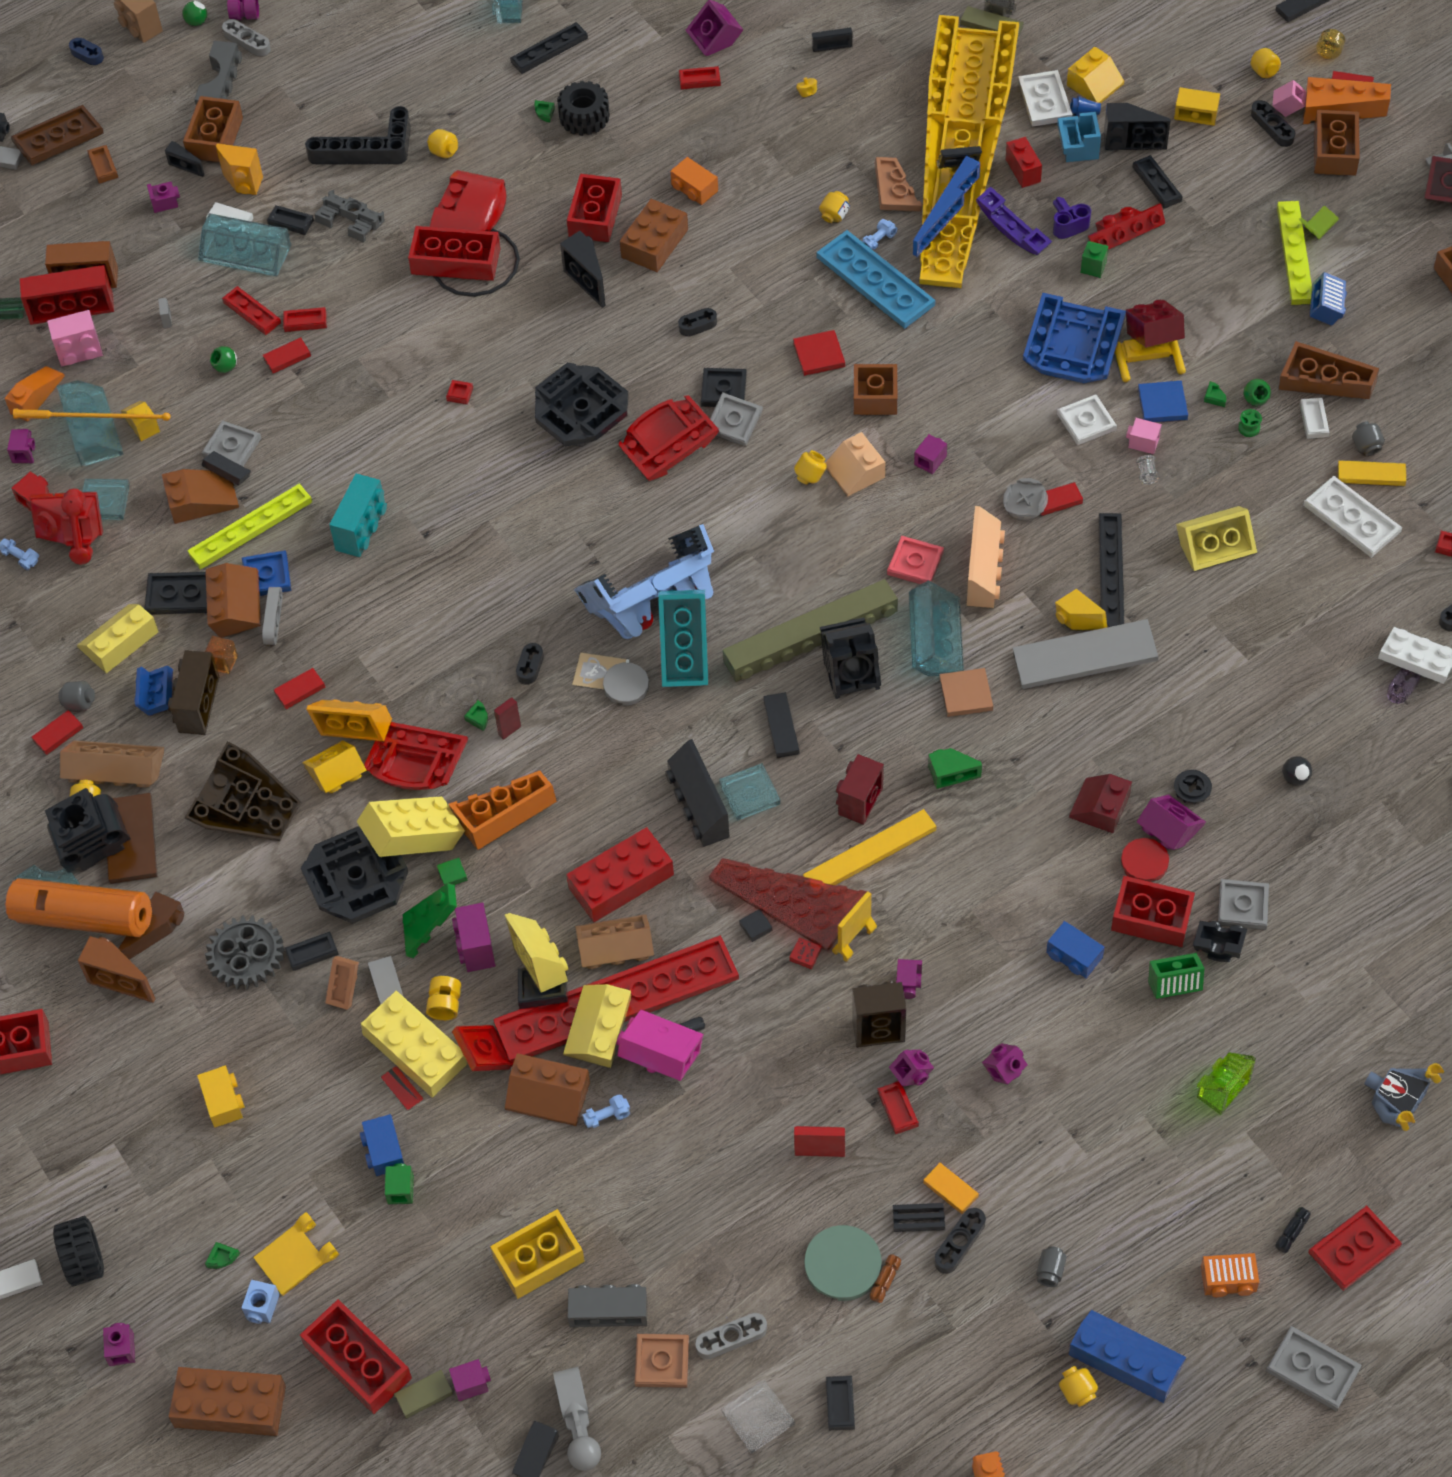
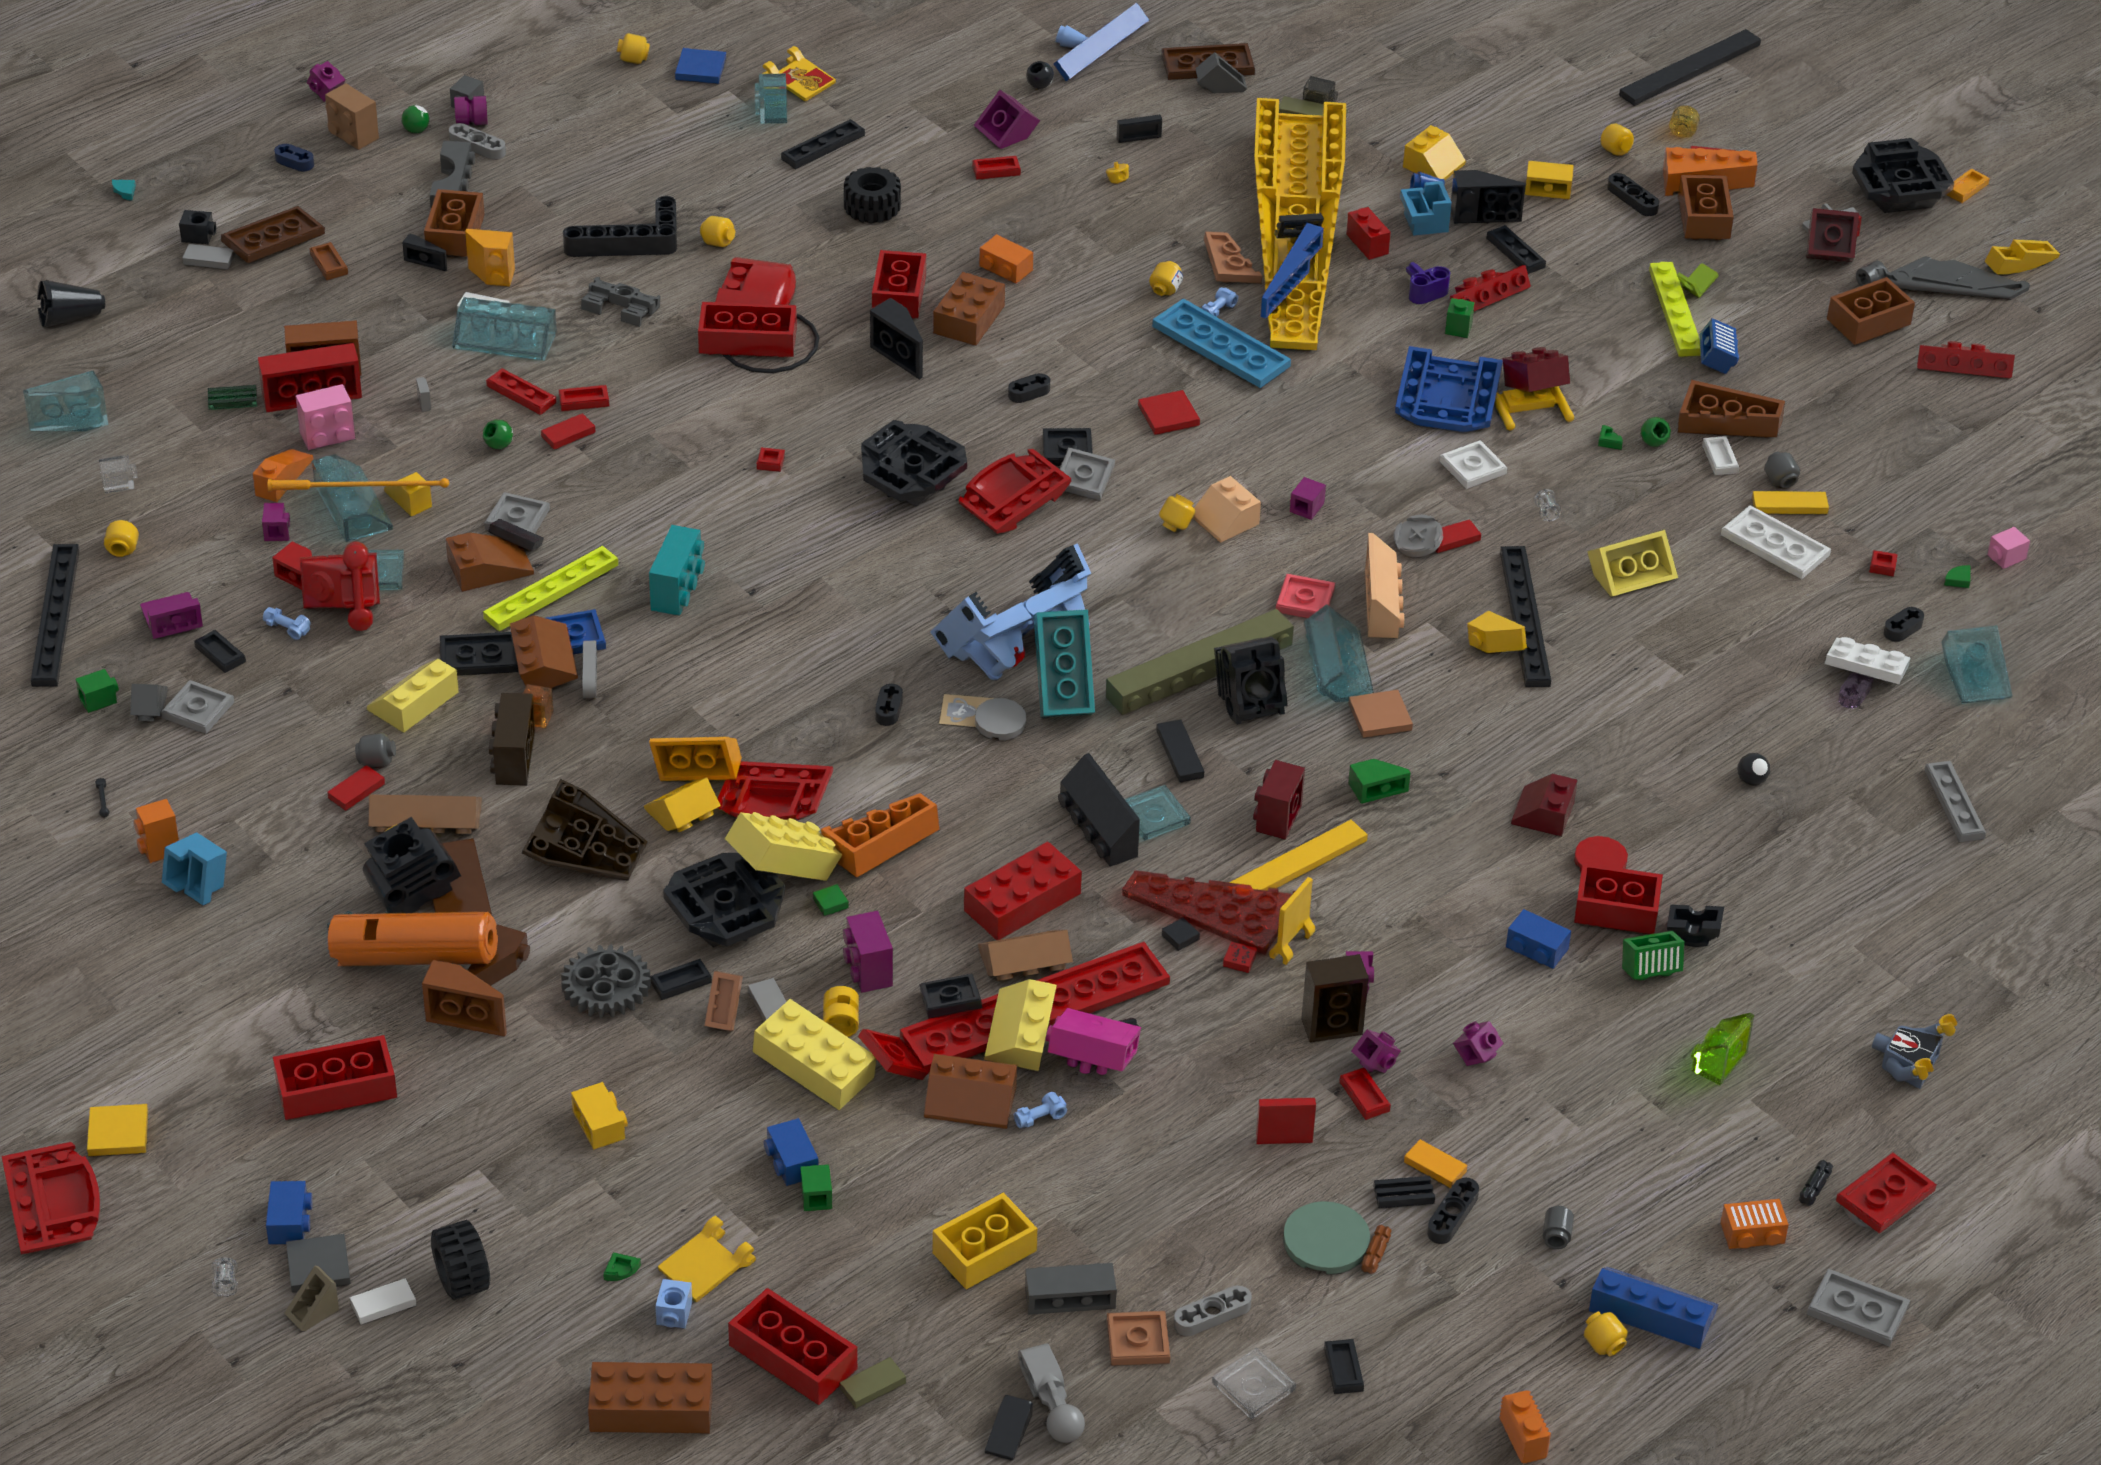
camera: 10 degrees left, 15 degrees down
(119, 1344) = (516, 1352): magenta brick -> none
(153, 689) = (464, 742): blue bracket -> none
(163, 196) = (404, 288): magenta brick -> none
(290, 219) = (565, 308): black tile -> none
(299, 688) = (629, 737): red tile -> none
(402, 1088) = (803, 1102): red sticker -> none
(425, 915) = (804, 940): green wing -> none
(470, 1379) = (924, 1364): magenta brick -> none
(477, 716) = (836, 755): green tile -> none
(507, 718) = (874, 749): dark red tile -> none
(537, 952) = (940, 962): light yellow slope -> none
(544, 110) = (826, 200): green tile -> none
(875, 389) = (1238, 439): dark orange brick -> none
(1010, 225) = (1362, 291): dark purple slope -> none
(1044, 97) = (1380, 175): white plate -> none
(1085, 654) = (1506, 672): light grey tile -> none
(1144, 435) = (1538, 474): bright pink brick -> none
(1163, 401) = (1554, 445): blue tile -> none
(1170, 822) = (1622, 819): magenta slope -> none
(1186, 779) = (1633, 783): black gear -> none
(1243, 904) = (1715, 889): light grey tile -> none
(1250, 423) = (1651, 461): green wheel -> none
(1289, 98) = (1648, 169): bright pink brick -> none

